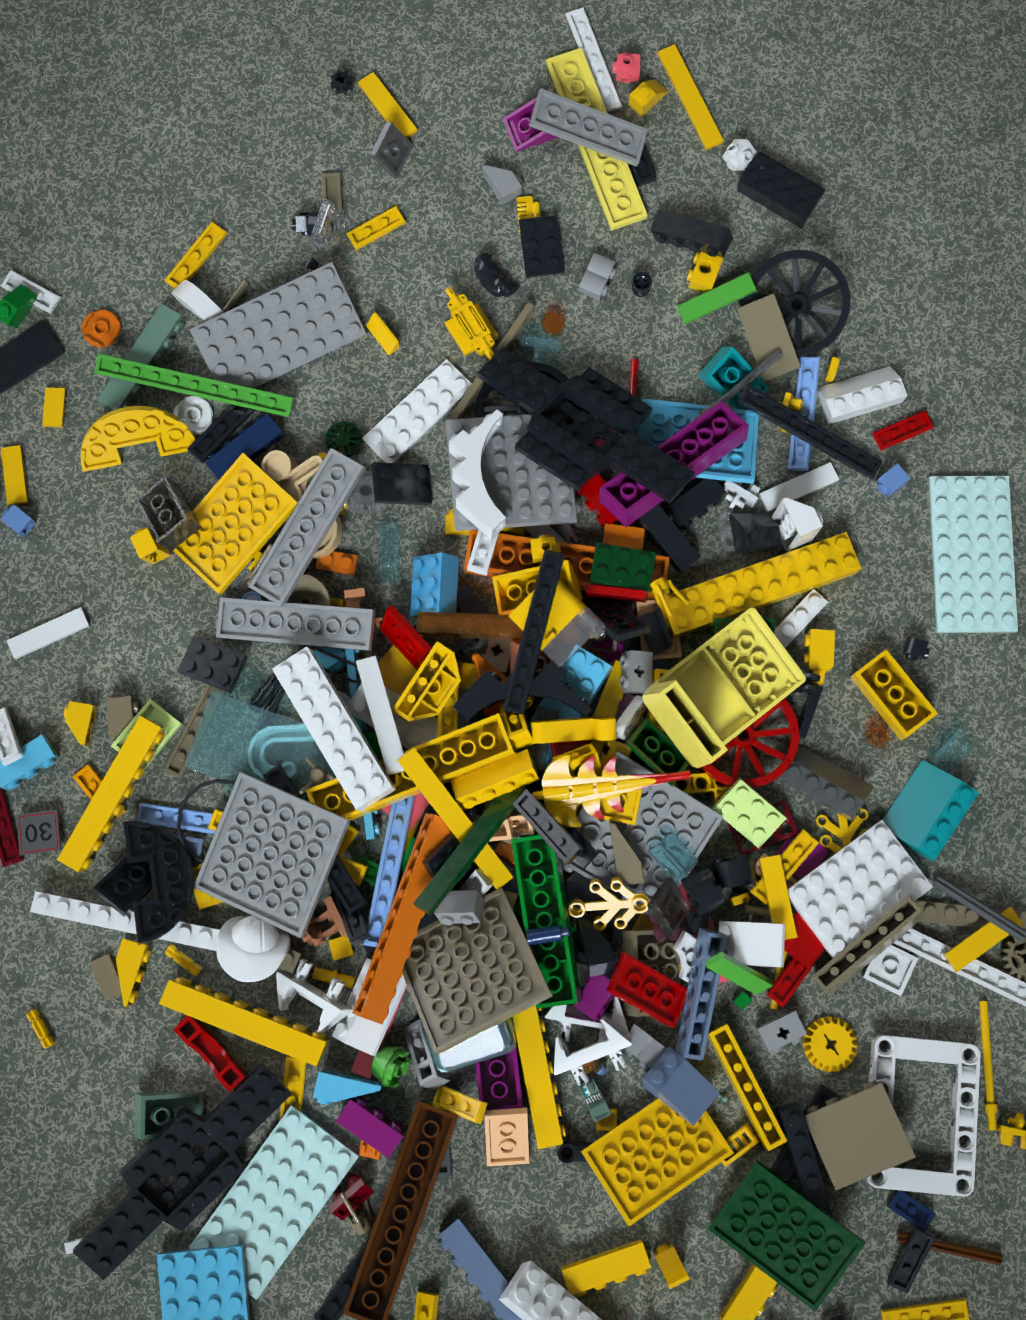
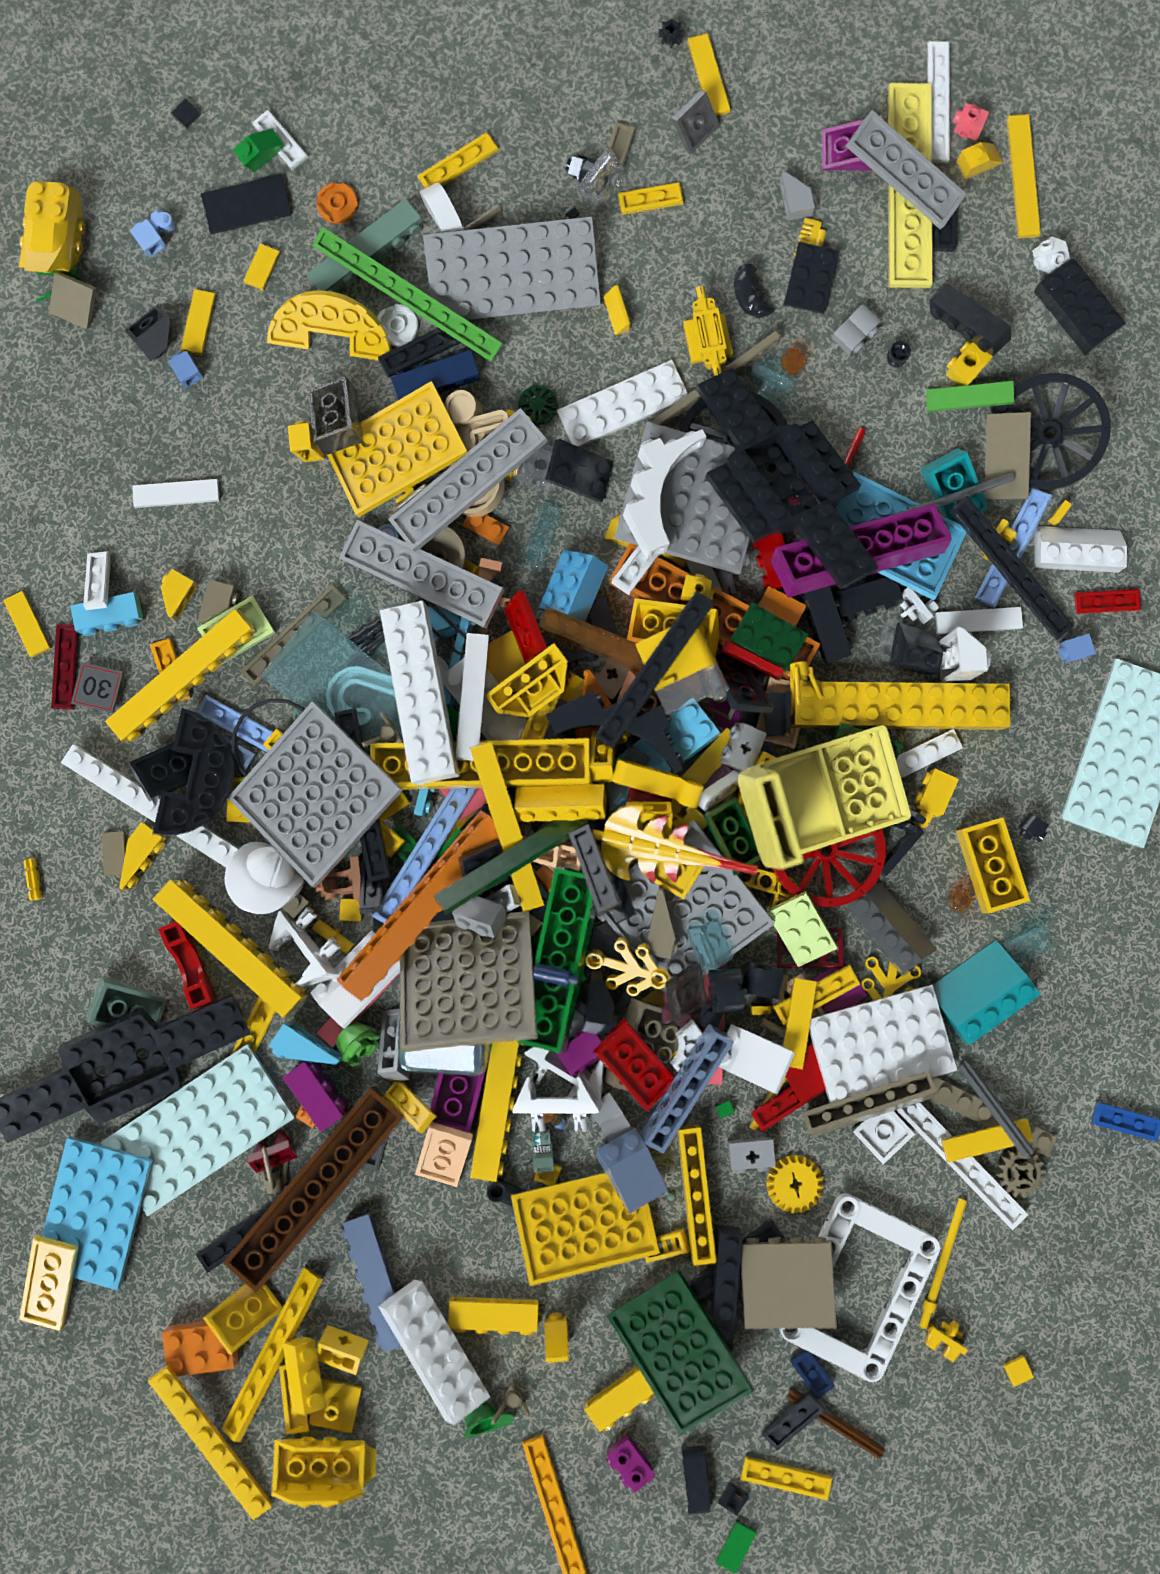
camera: 20 degrees right, 5 degrees up
(183, 960) = (193, 865): yellow axle -> none
(212, 664) = (325, 584): black plate -> none
(738, 973) = (730, 1082): bright green tile -> none

